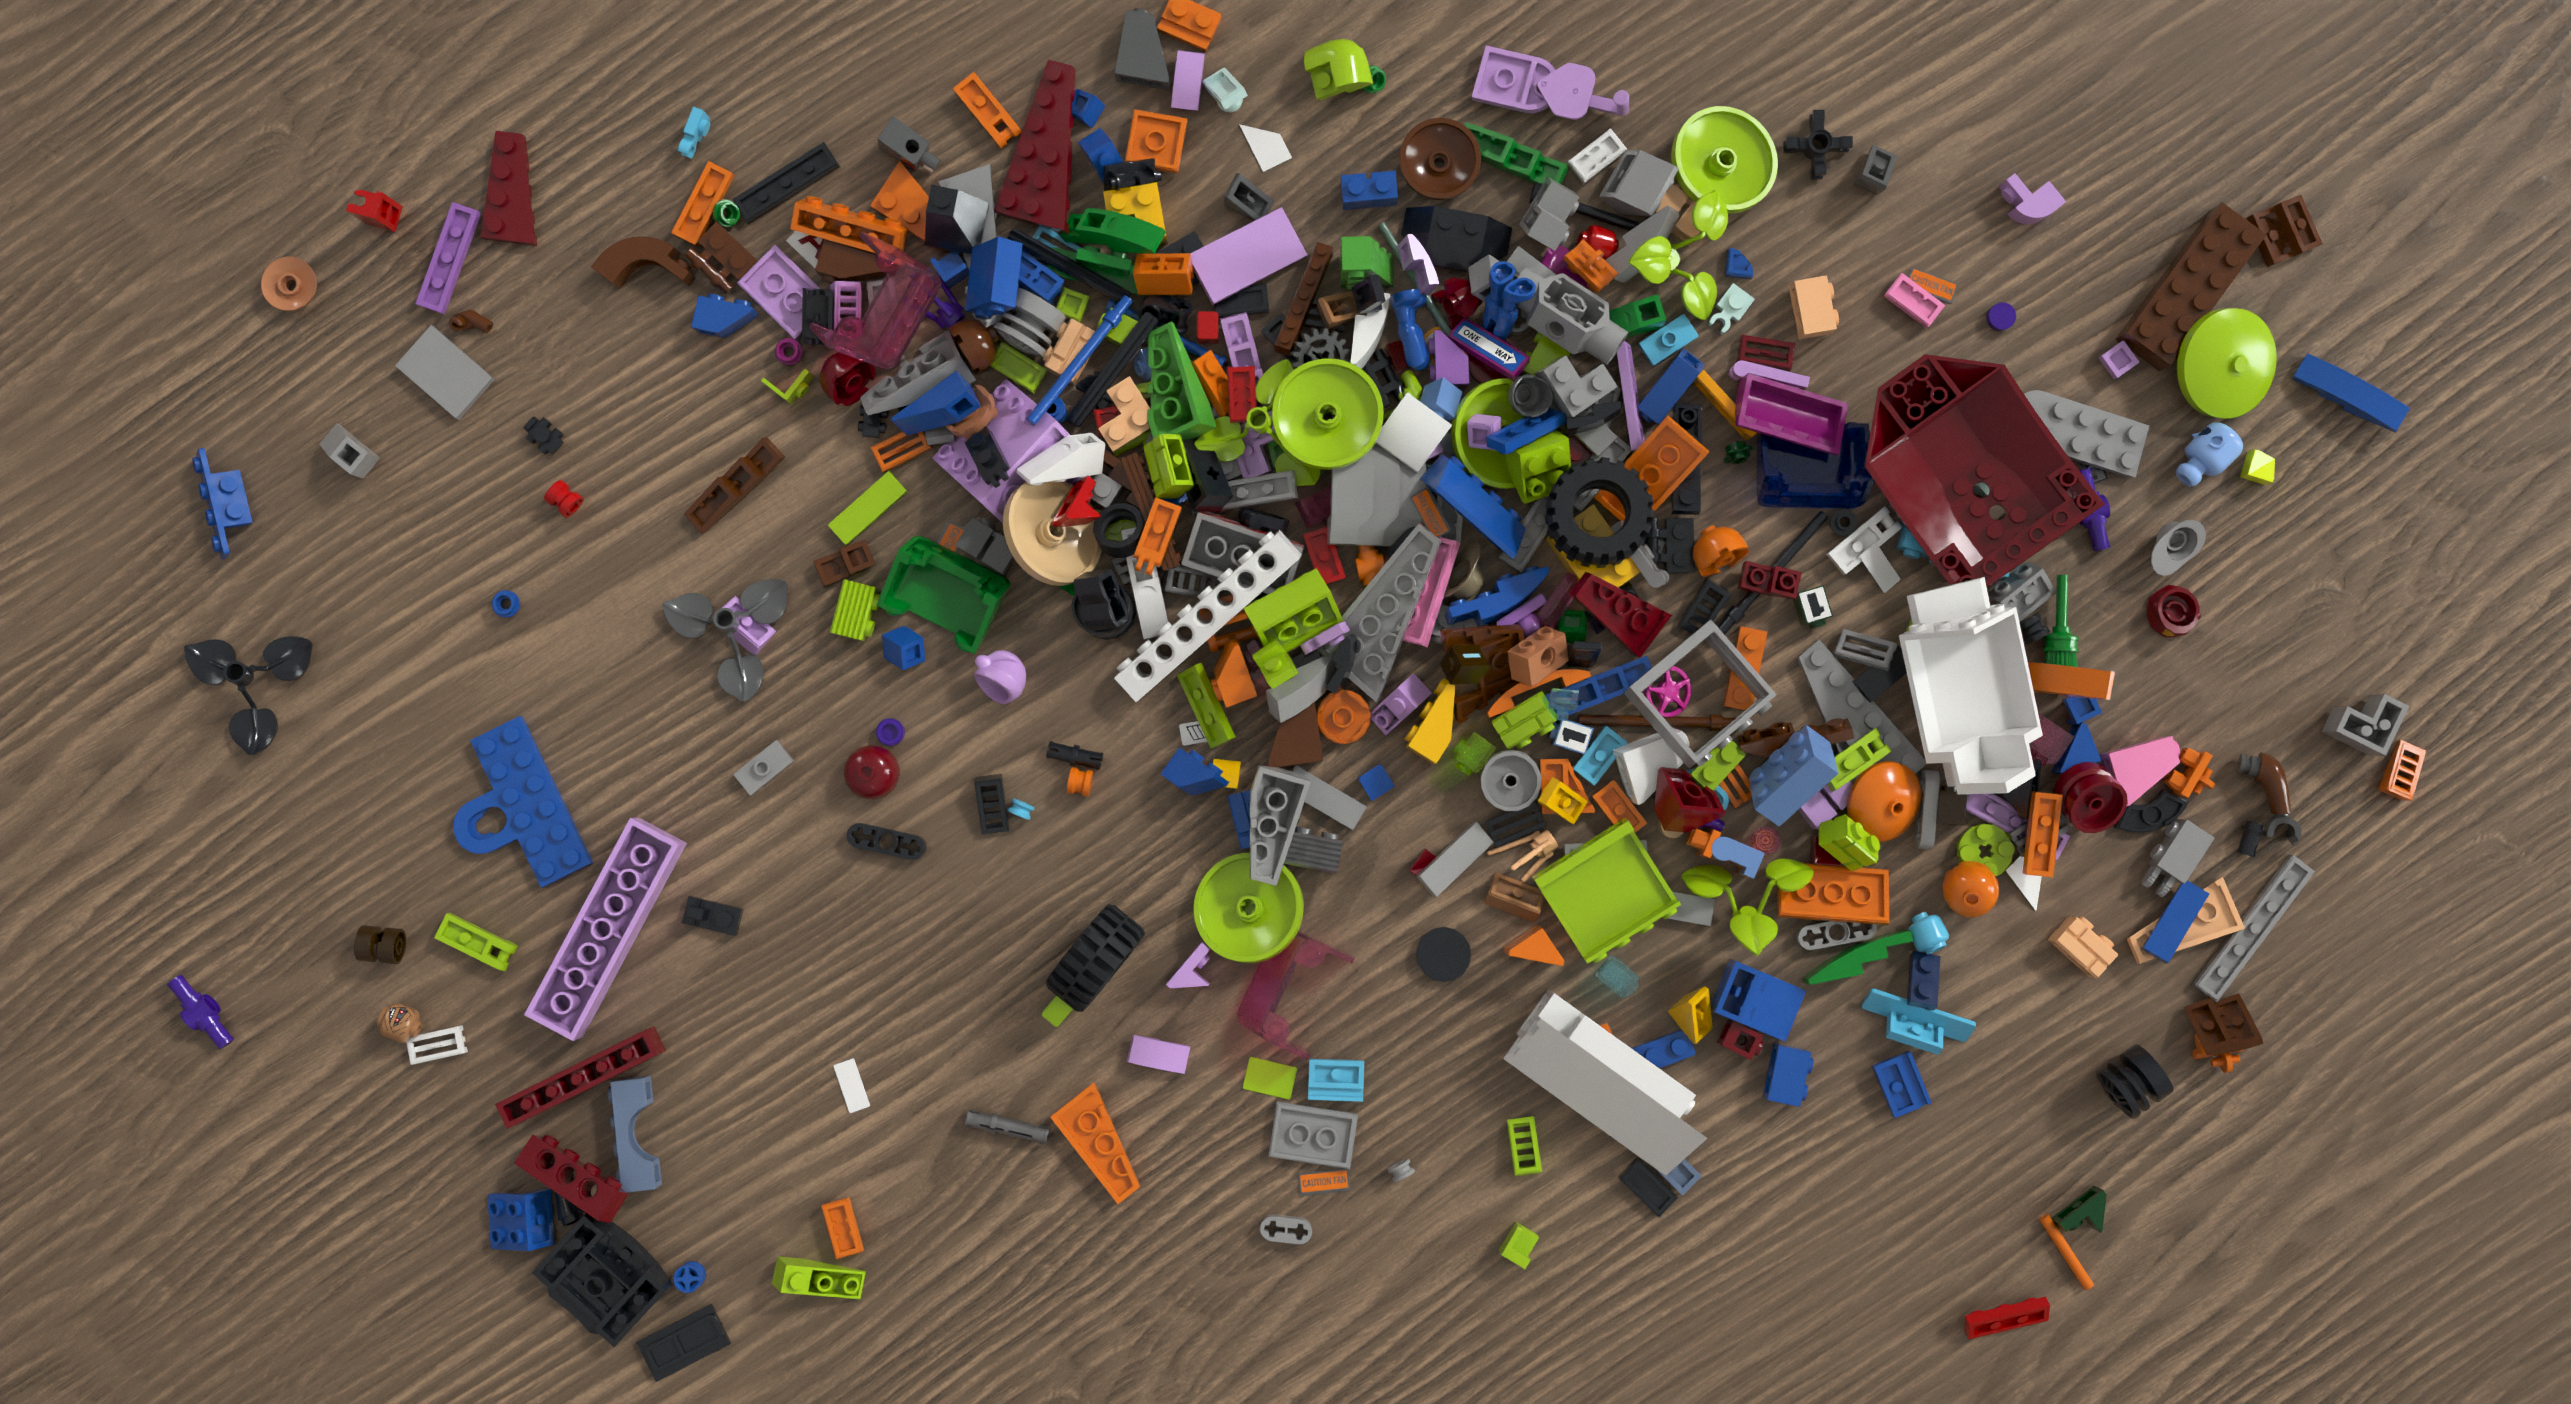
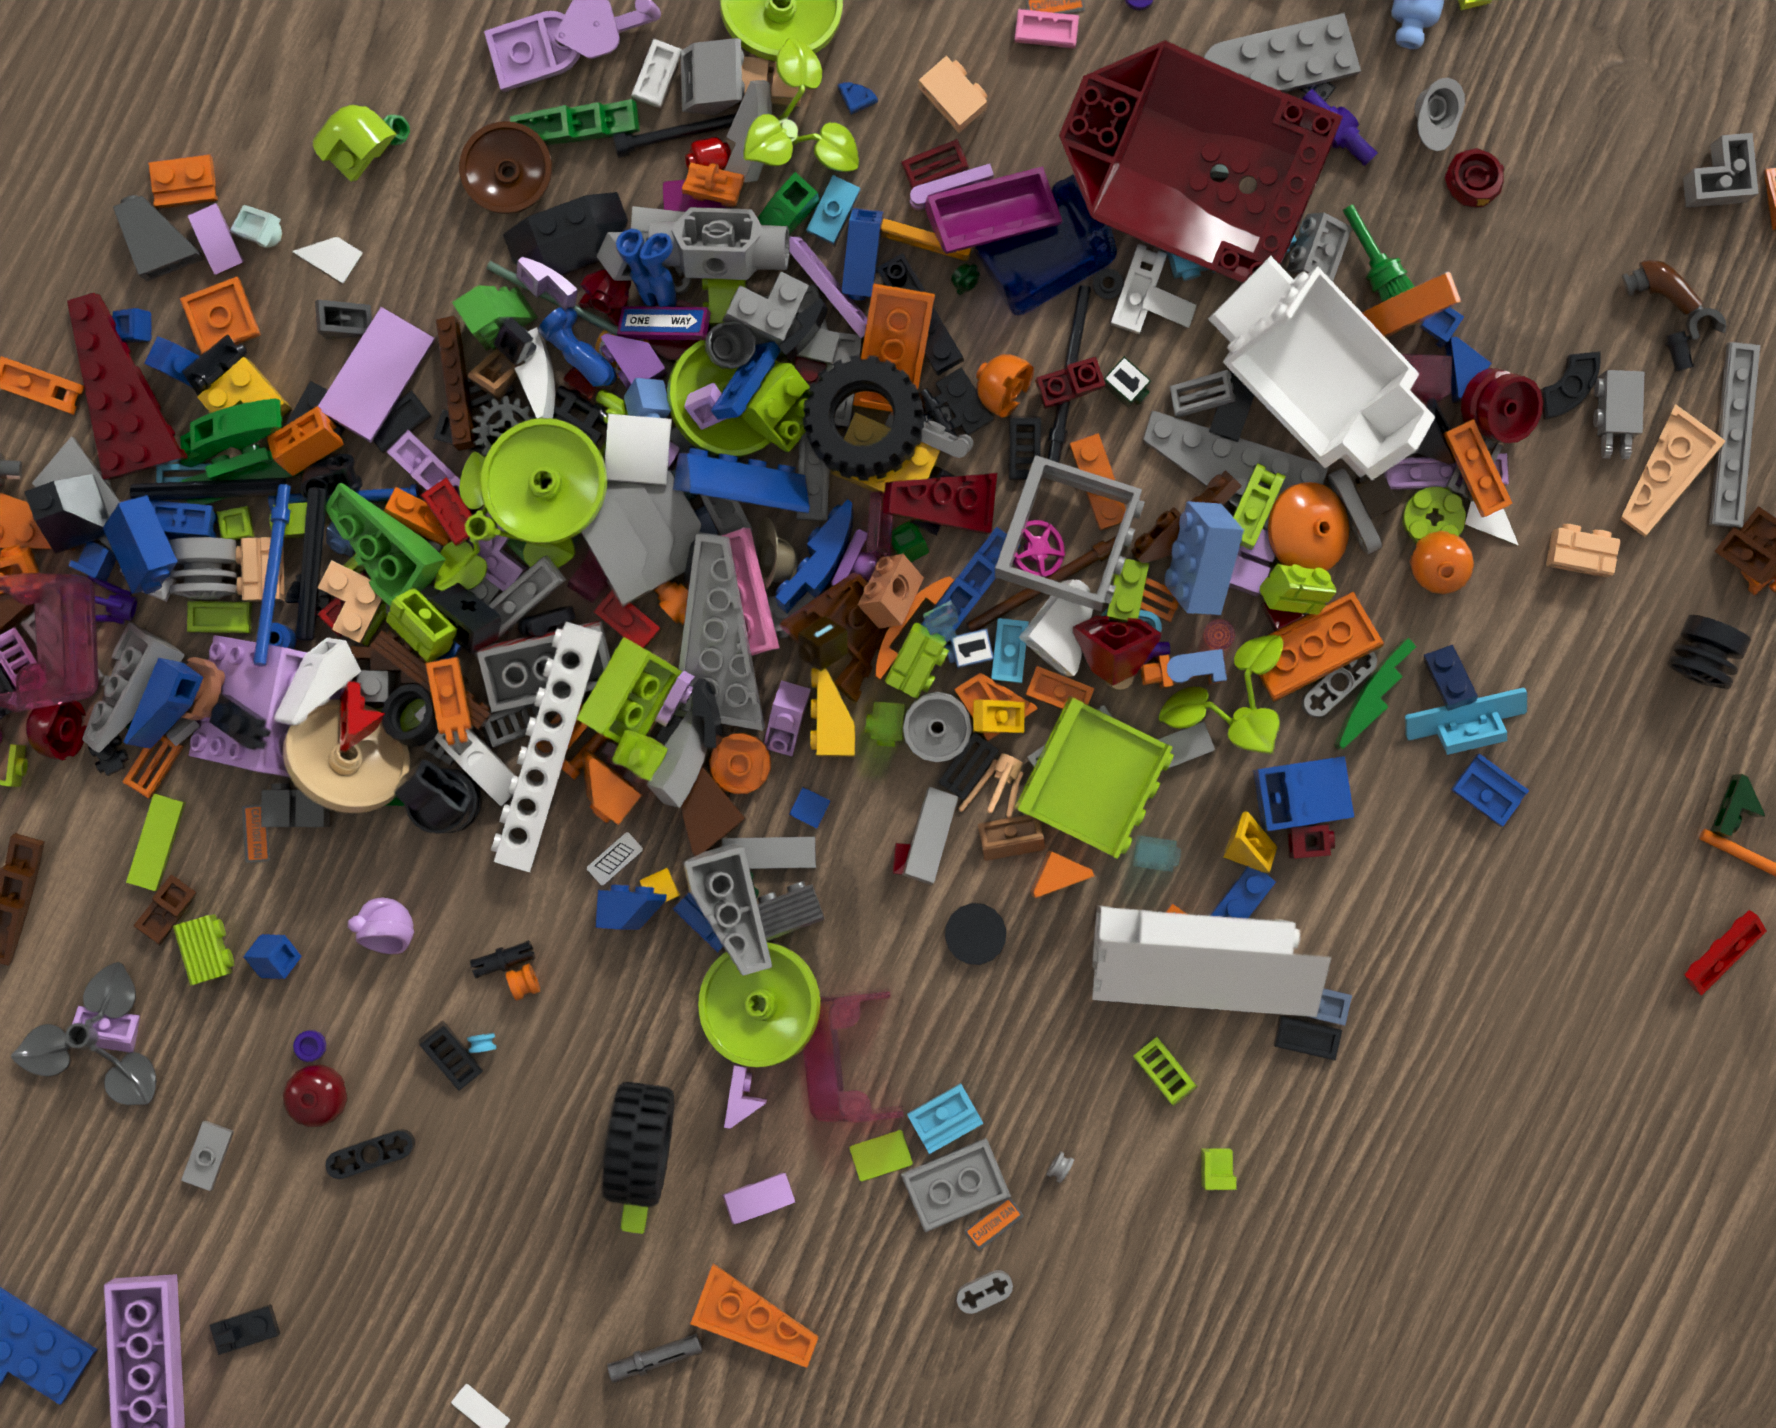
camera: 30 degrees left, 0 degrees up
(944, 590) = (278, 877): green windscreen -> none
(975, 343) = (162, 618): reddish brown cylinder -> none
(1205, 705) = (598, 834): lime plate -> none
(1207, 327) = (379, 467): red slope -> none
(1371, 192) = (456, 242): blue piece -> none
(1430, 512) = (703, 516): orange sticker -> none
(1548, 214) = (642, 158): light grey brick -> none
(1583, 654) = (933, 562): black slope -> none
(1732, 306) = (875, 138): light aqua plate -> none
(1787, 1075) = (1375, 847): blue brick -> none
(1928, 933) = (1427, 629): medium azure head -> none
(2033, 629) = (1350, 276): black wheel -> none
(2142, 764) = (1533, 344): bright pink slope -> none
(2175, 921) = (1655, 474): blue tile -> none
(2195, 775) = (1591, 323): orange hips -> none

